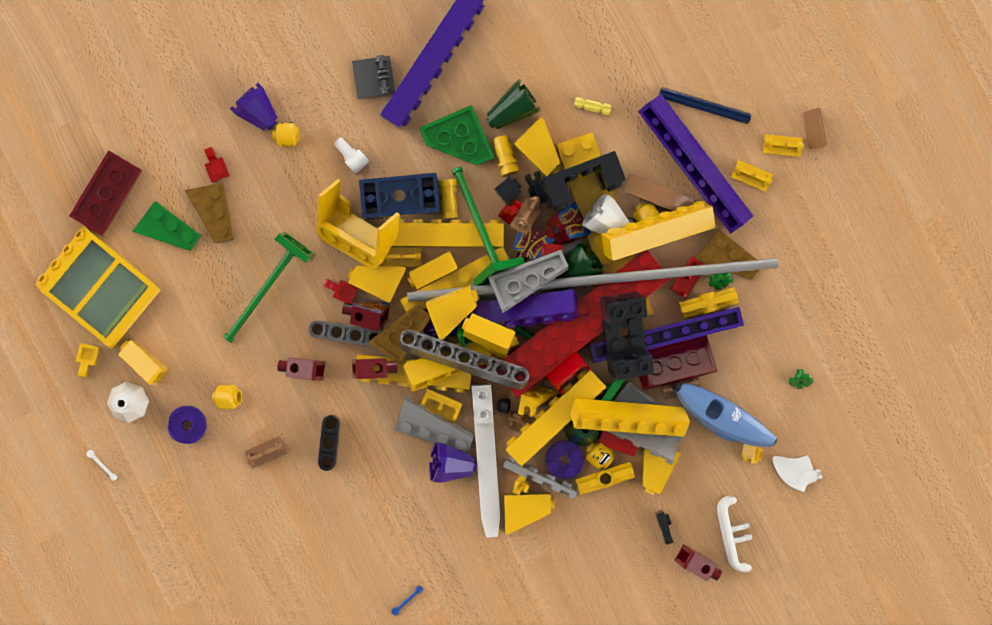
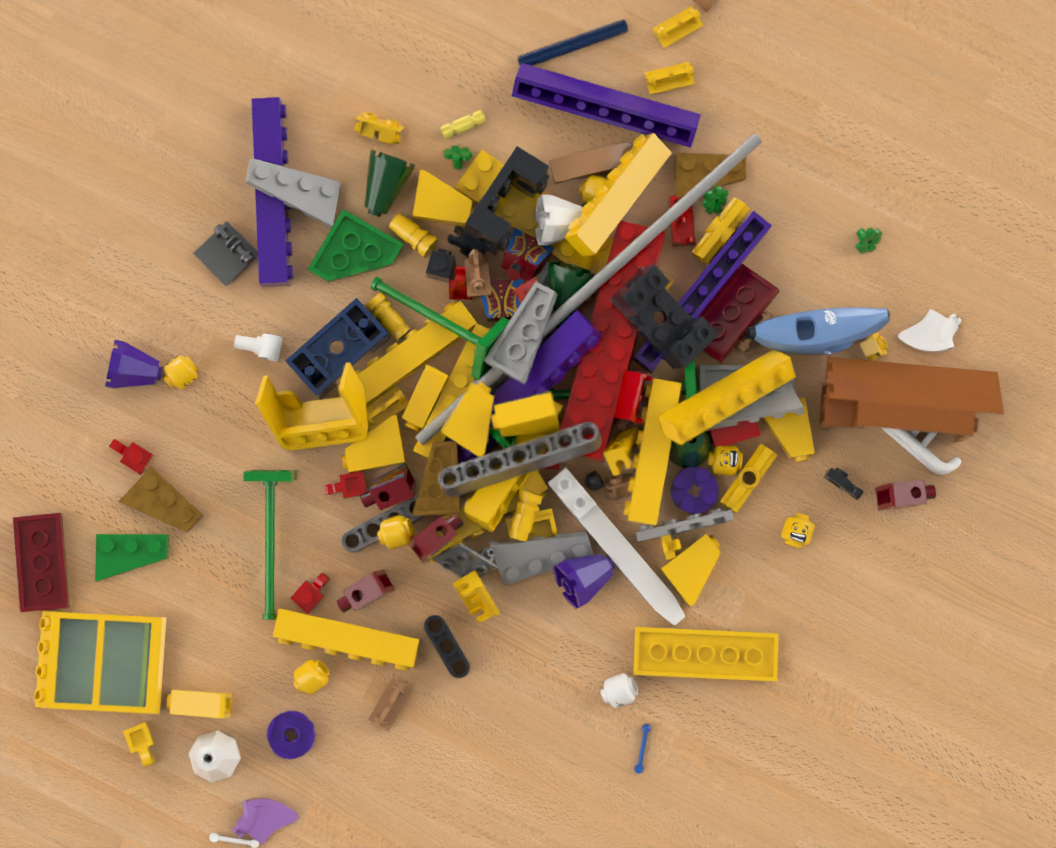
camera: 30 degrees left, 5 degrees down
(130, 465) = (263, 817): none -> medium lavender arm
(264, 342) = (308, 594): none -> red plate
(268, 389) = (346, 638): none -> yellow brick
(349, 345) = (396, 532): none -> yellow head
(371, 425) = (476, 596): none -> yellow hinge
(381, 400) = (464, 560): none -> dark grey hinge
(419, 553) = (619, 690): none -> white head
(442, 395) = (524, 515): none -> yellow axle
(453, 73) = (297, 189): none -> light grey wing
(492, 570) = (705, 654): none -> yellow plate
(540, 72) = (370, 124): none -> yellow hinge
(573, 124) = (458, 155): none -> green plant
(611, 535) = (797, 531): none -> yellow head
(747, 503) = (907, 397): none -> dark orange panel

